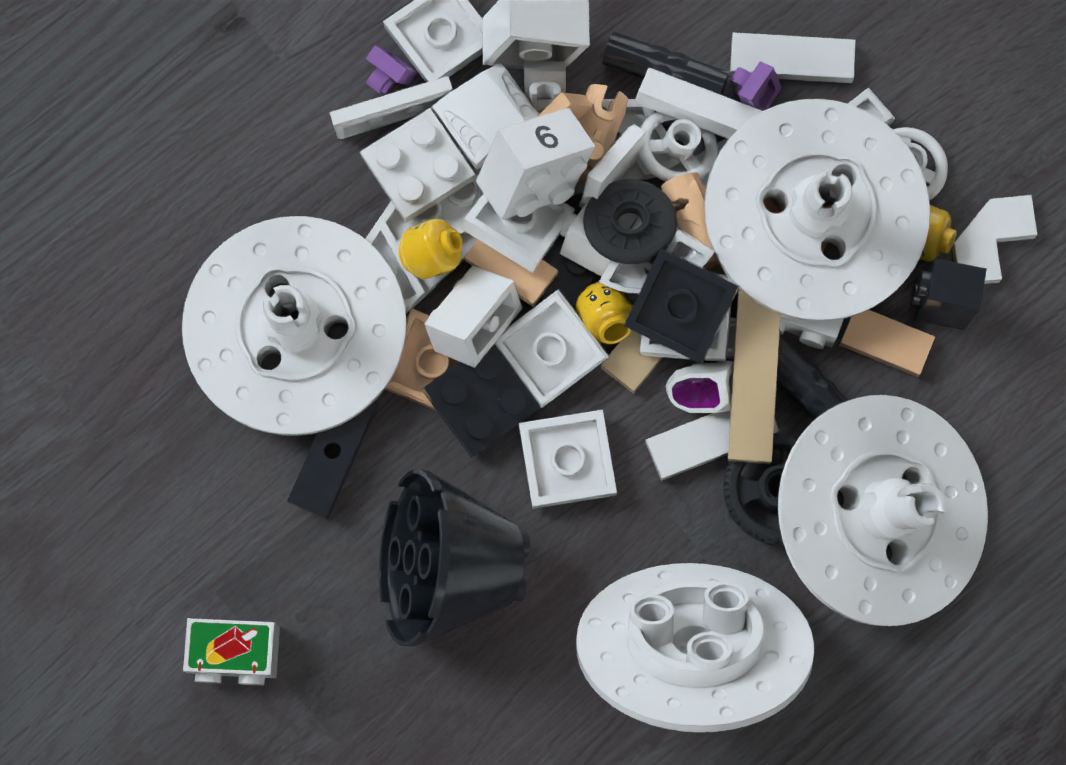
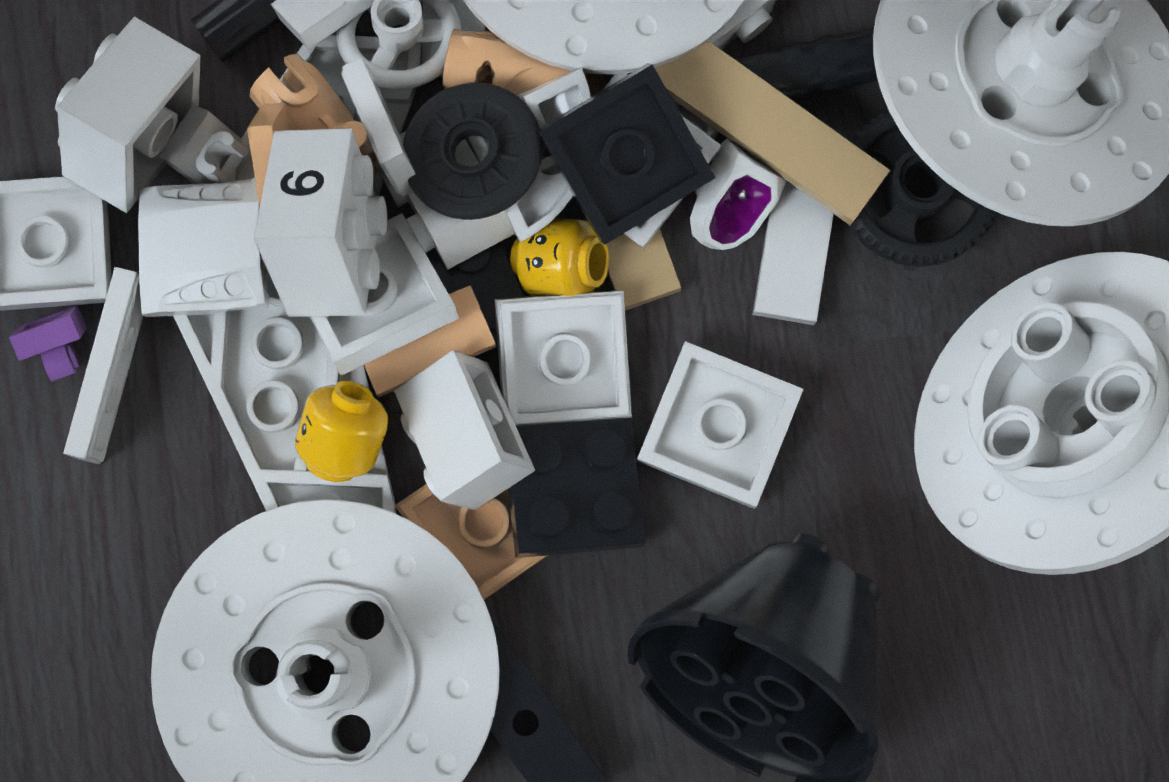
camera: 65 degrees left, 5 degrees up
(418, 165) = (210, 380): white plate -> none

